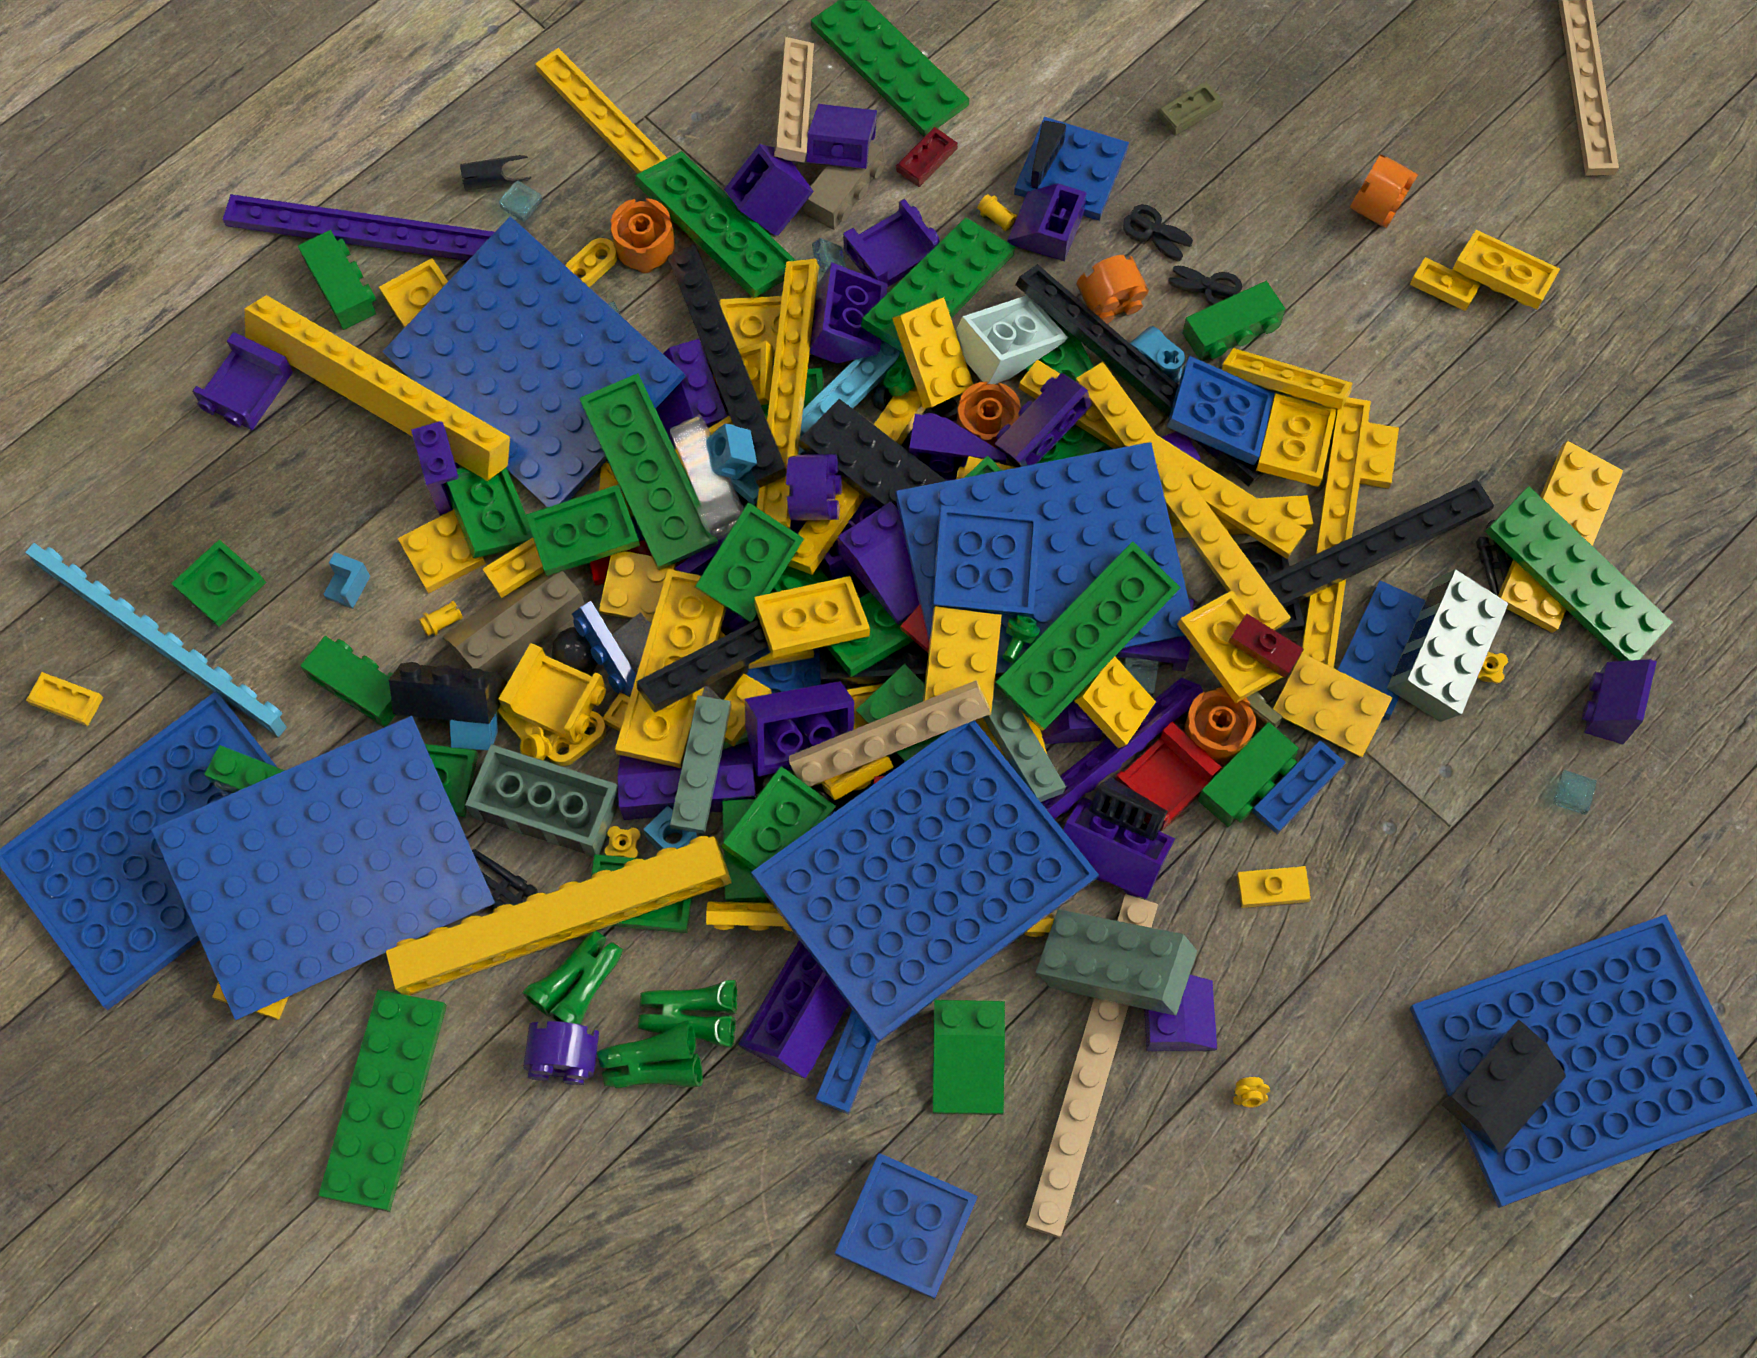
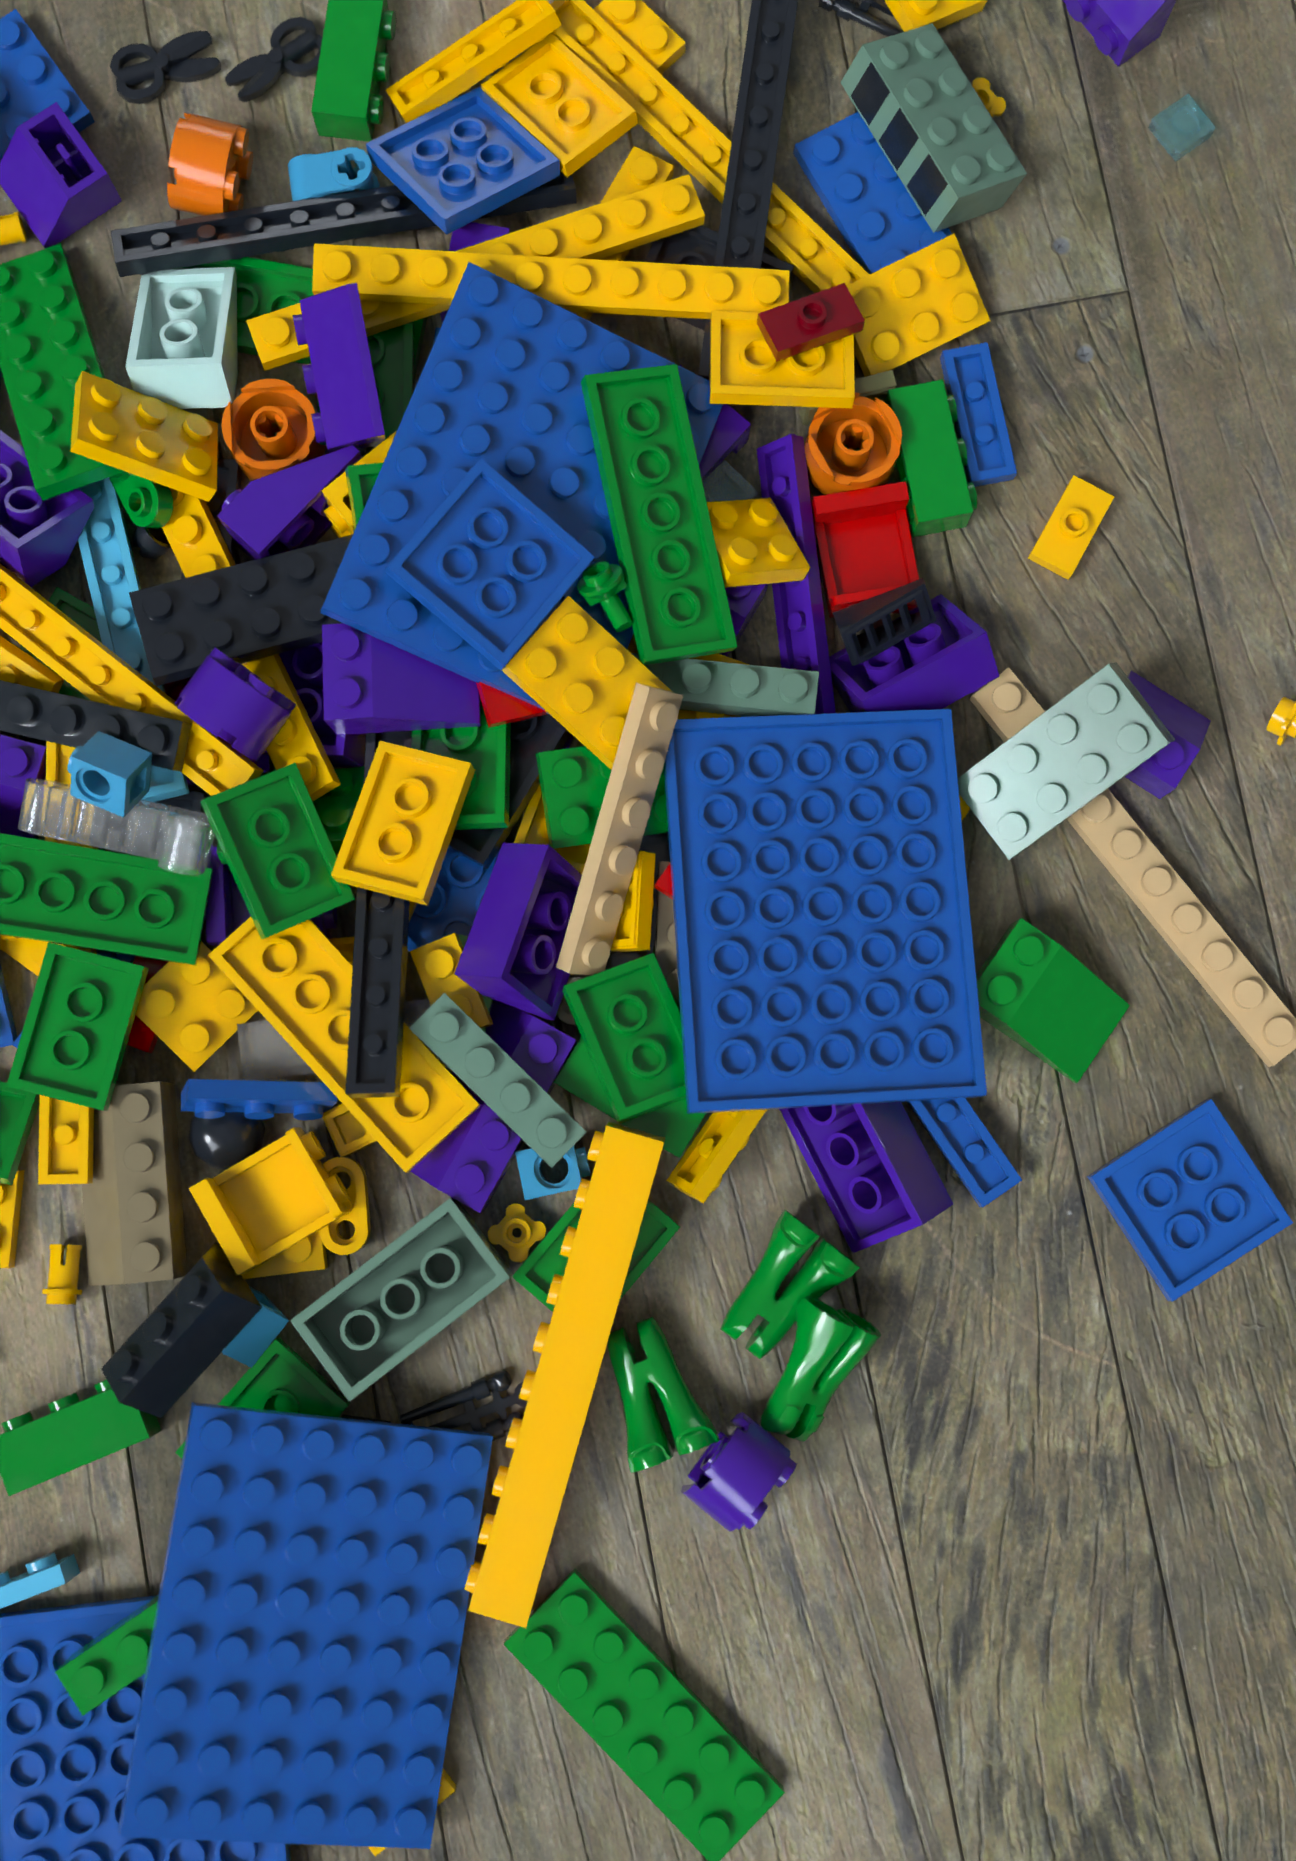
camera: 60 degrees left, 15 degrees up
(536, 744) = (326, 1263): yellow plate -> none

